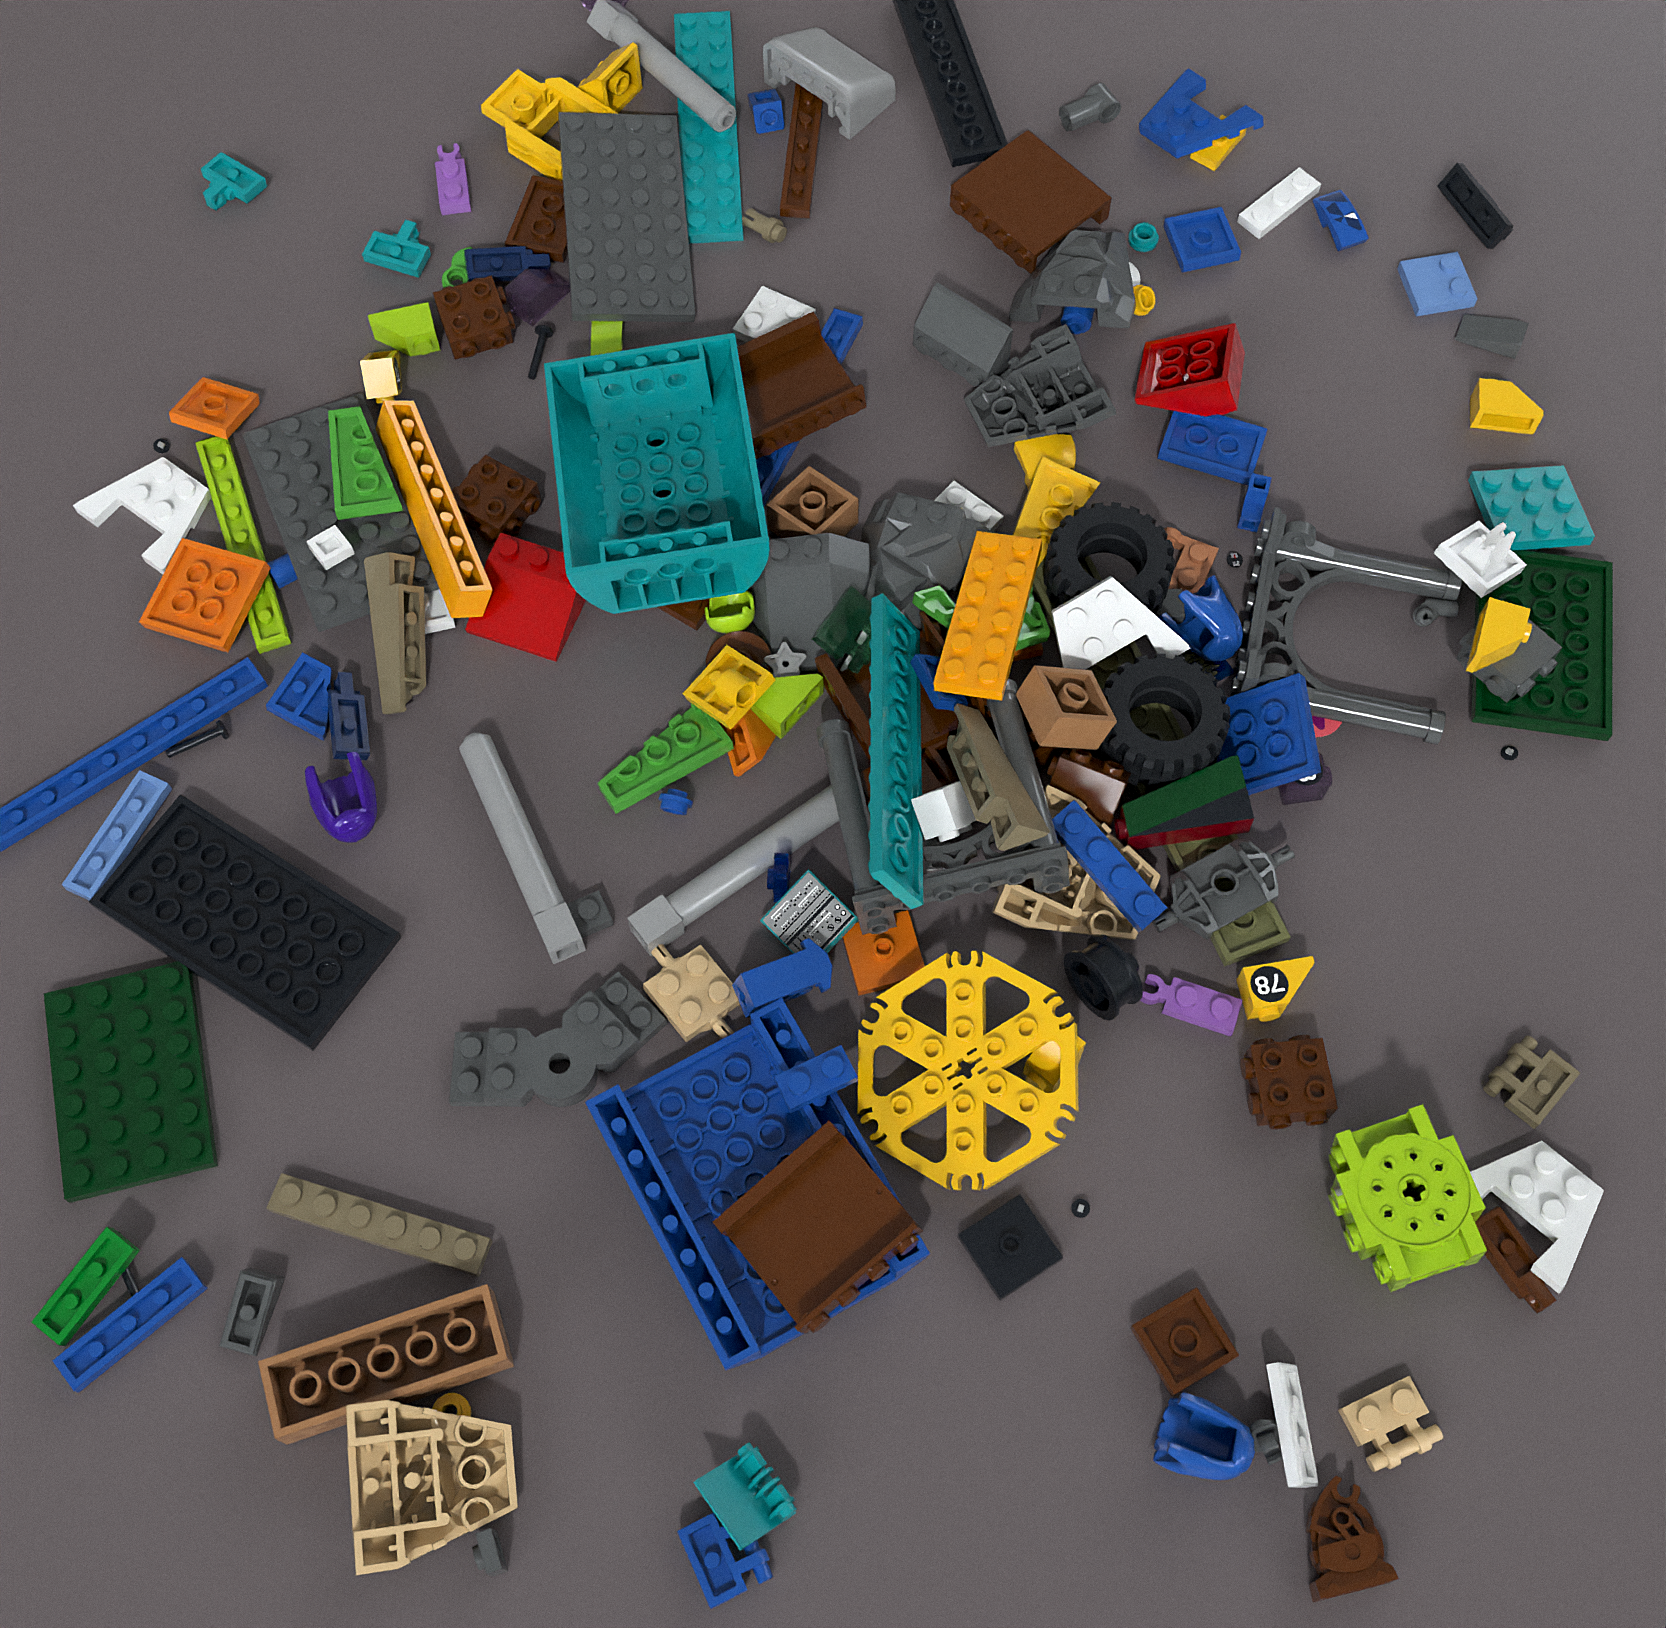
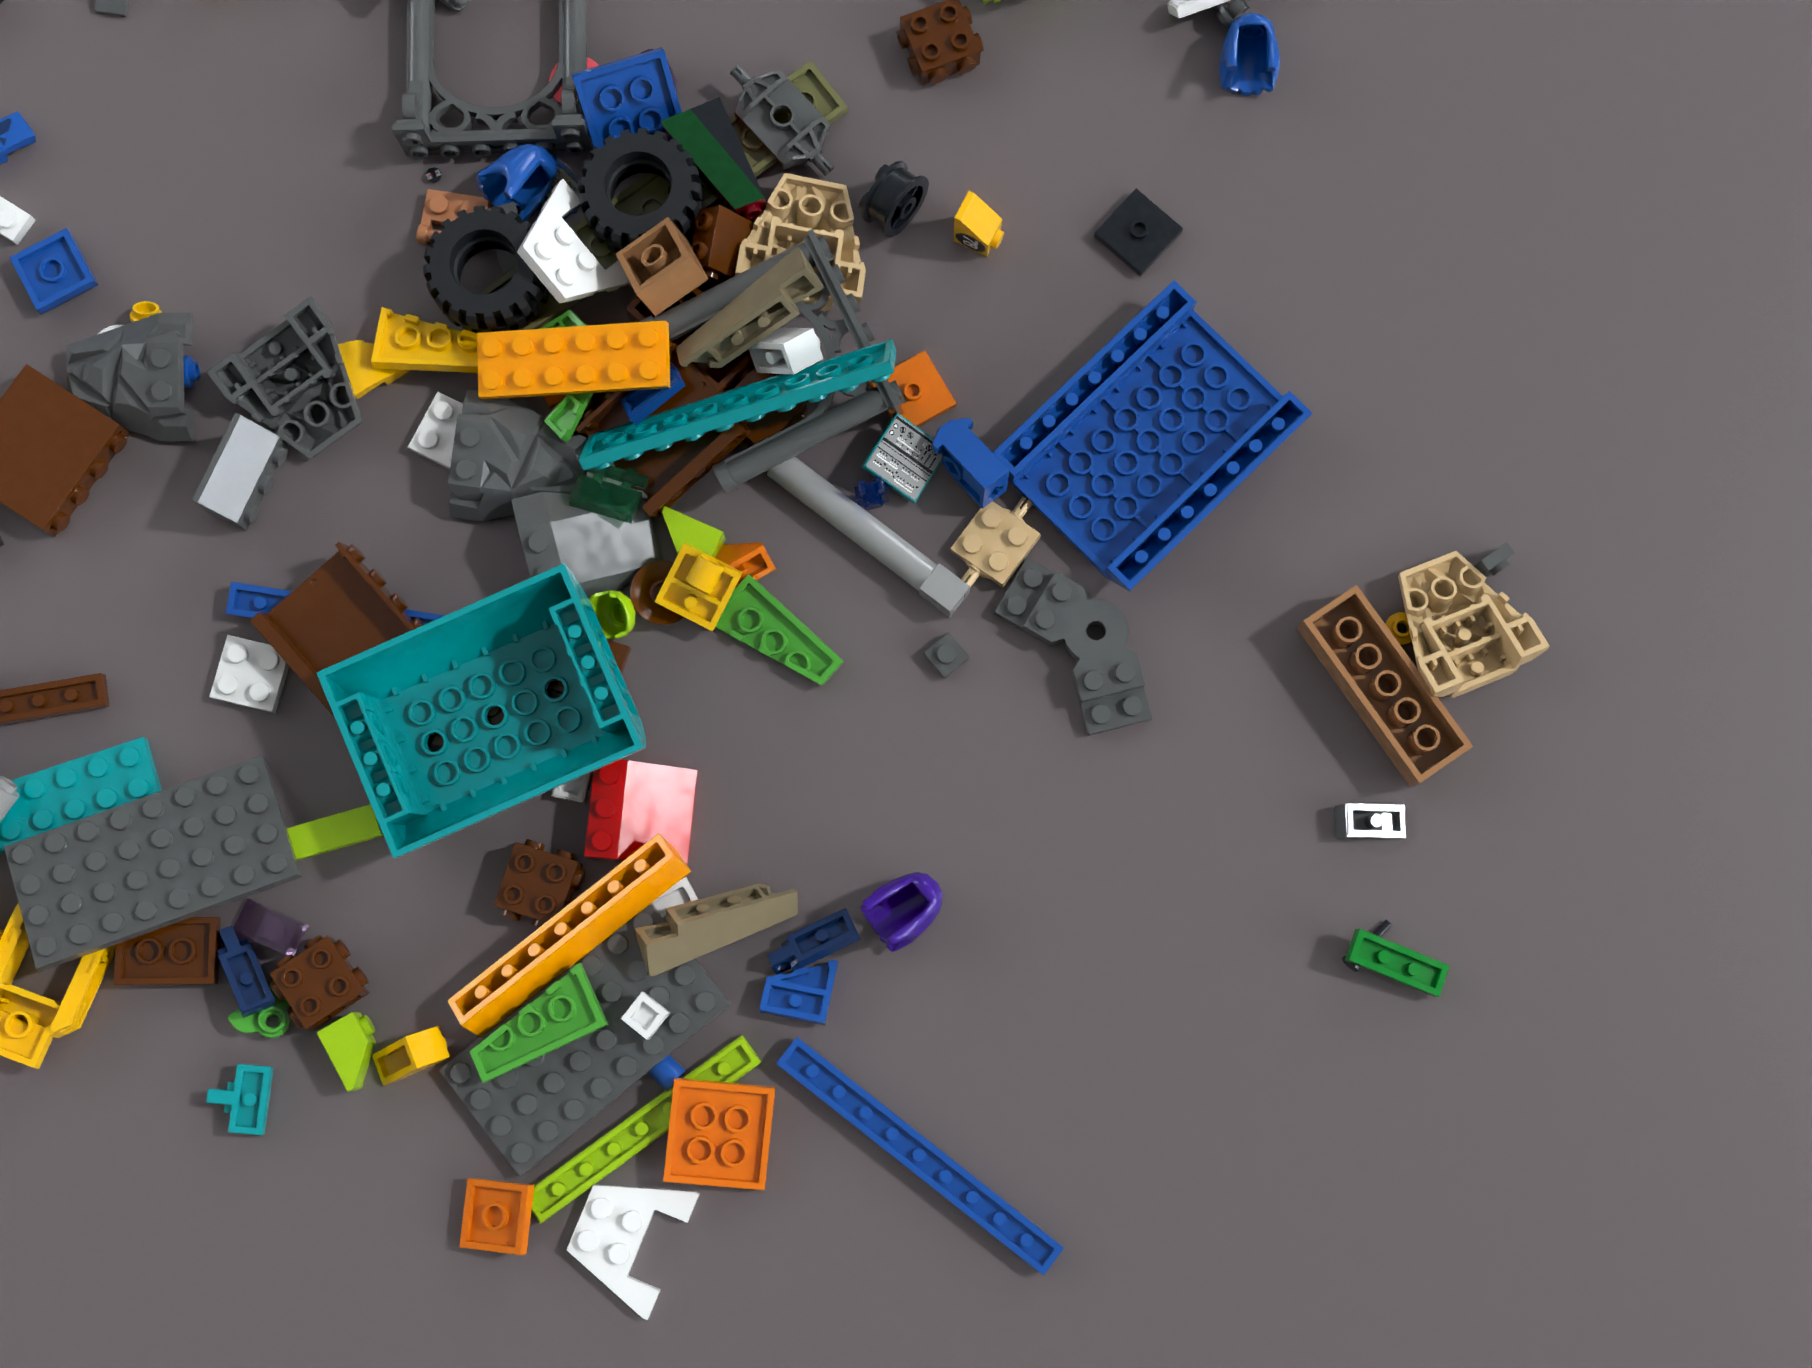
camera: 105 degrees left, 15 degrees up
(117, 835) = (991, 1115): medium blue plate -> none
(128, 1081) = (1210, 1008): dark green plate -> none
(129, 1325) = (1414, 915): blue plate -> none
(161, 446) = (549, 1262): black piece -> none
(220, 730) = (871, 1081): black pin -> none
(230, 180) = (188, 1326): teal hinge -> none
(246, 921) = (1038, 962): black plate -> none
(380, 1225) = (1270, 742): dark tan plate -> none
(452, 182) = (135, 1076): medium lavender plate -> none
(521, 848) = (900, 735): light grey brick -> none
(543, 332) = (341, 905): black pin -> none
(675, 802) = (820, 610): blue plate -> none
(714, 1563) = (1443, 395): blue plate -> none
(746, 1496) = (1394, 378): teal hinge -> none
(770, 228) = (131, 710): dark tan animal -> none
(785, 654) = (655, 555): light grey plate -> none
(812, 507) = (481, 562): medium nougat brick -> none
(816, 1078) = (1057, 403): blue plate -> none
(819, 1227) = (1180, 367): reddish brown panel -> none
(995, 1086) = (988, 294): yellow plate -> none
(1080, 1208) = (1089, 186): black piece -> none
(1107, 866) = (794, 212): blue plate -> none
(1143, 237) = (55, 325): teal plate -> none
(1184, 1341) = (1175, 84): reddish brown plate -> none
(1193, 372) = (232, 246): red slope -> none
(1194, 1004) = (888, 127): medium lavender plate -> none
(1213, 445) = (307, 215): blue plate -> none
(1254, 502) = (370, 167): blue piece -> none
(1270, 986) = (860, 67): yellow slope -> none
(1437, 284) = (60, 41): medium blue plate -> none

